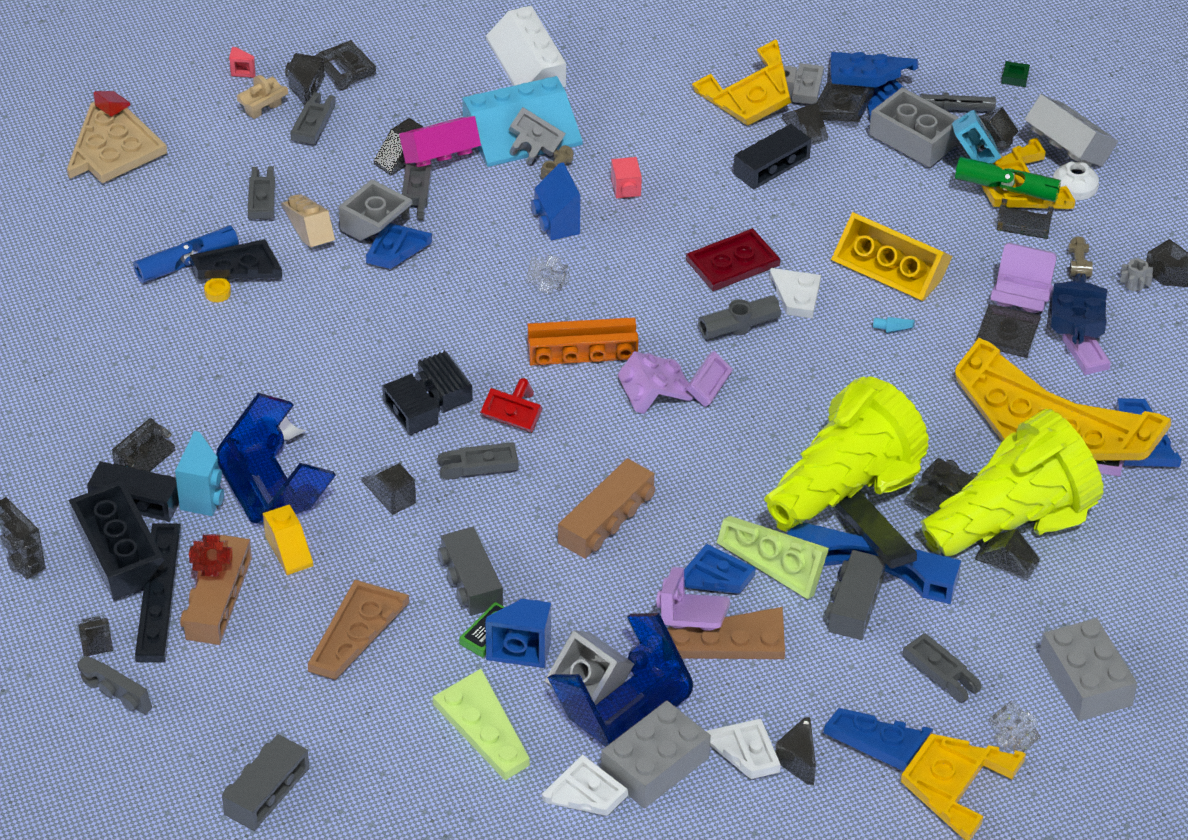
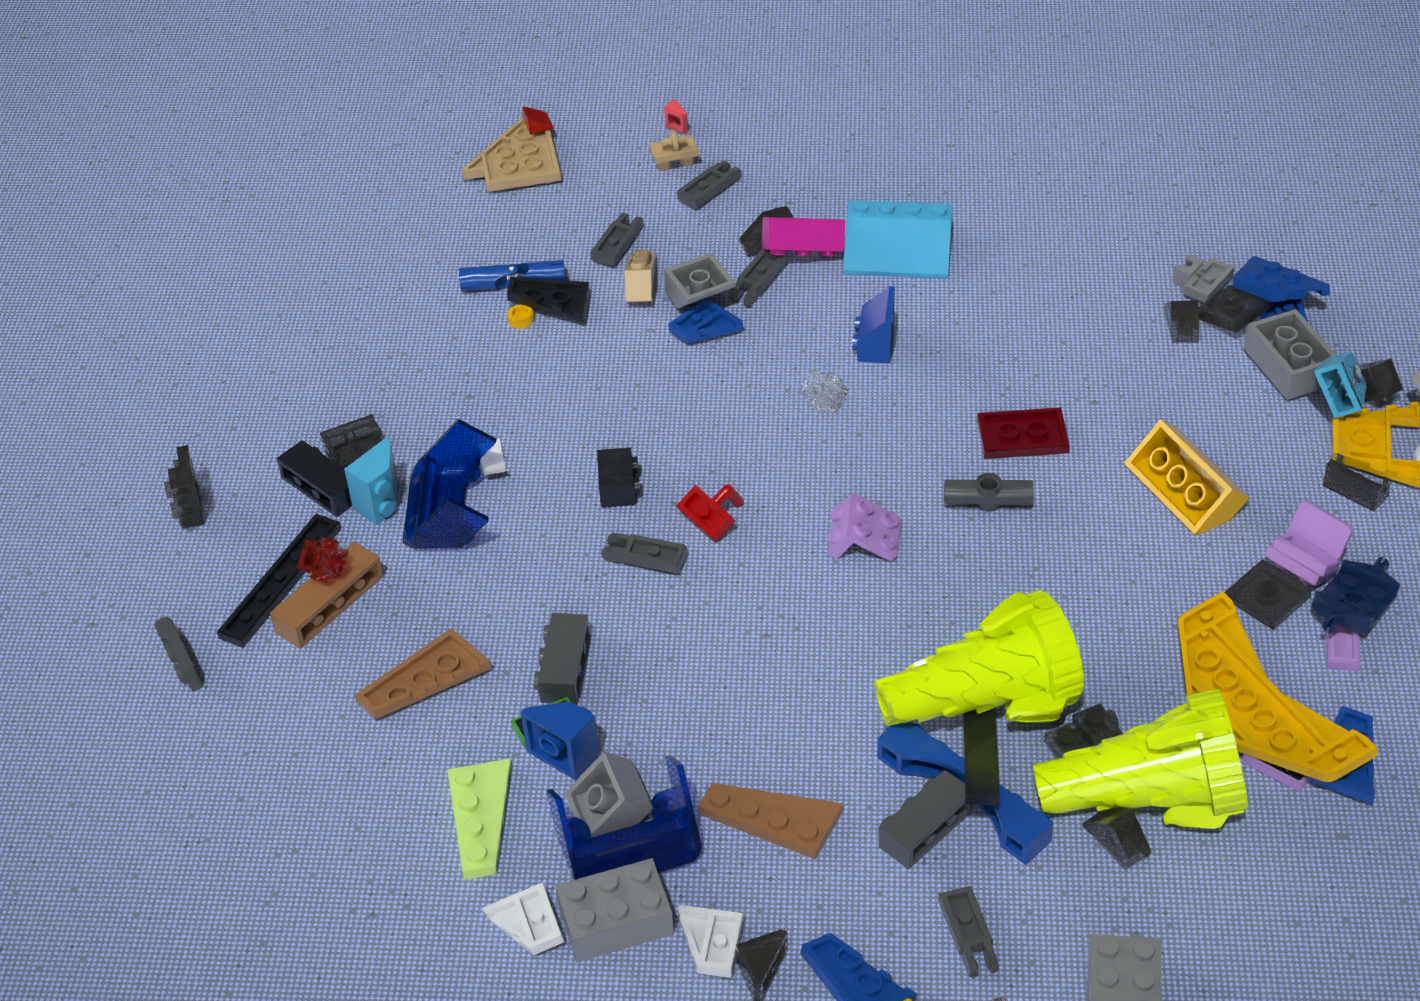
camera: 30 degrees right, 0 degrees up
(94, 635) = (195, 599): clear smoke slope -> none
(116, 538) = (264, 516): black slope -> none
(265, 782) = (242, 796): dark grey brick -> none
(287, 539) = (418, 569): yellow slope -> none
(305, 75) = (727, 142): clear smoke slope -> none
(351, 60) = (778, 143): clear smoke plate -> none
(392, 487) = (546, 553): clear smoke slope -> none
(444, 381) = (661, 465): black brick -> none
(525, 48) = (946, 172): white slope -> none
(534, 135) = (897, 256): light grey plate -> none
(564, 154) = (917, 284): dark tan bar -> none
(581, 341) = (817, 467): orange brick -> none
(606, 508) = (732, 640): medium nougat brick -> none
(626, 177) = (964, 321): coral brick -> none
(689, 610) = (736, 767): lavender bracket -> none
(709, 379) = (918, 544): lavender tile -> none
(717, 571) = (798, 743): blue wing -> none
(754, 95) = (1147, 275): yellow wing -> none
(772, 156) = (1125, 342): black brick -> none
(779, 555) = (870, 750): yellowish green wing -> none
(796, 291) = (1068, 484): white wing -> none
(893, 324) = (1147, 549): medium azure bar -> none
(961, 103) = (1357, 342): dark grey pin -> none
(993, 176) = (1340, 426): green piece -> none
(1080, 265) = (1389, 550): dark tan bar -> none

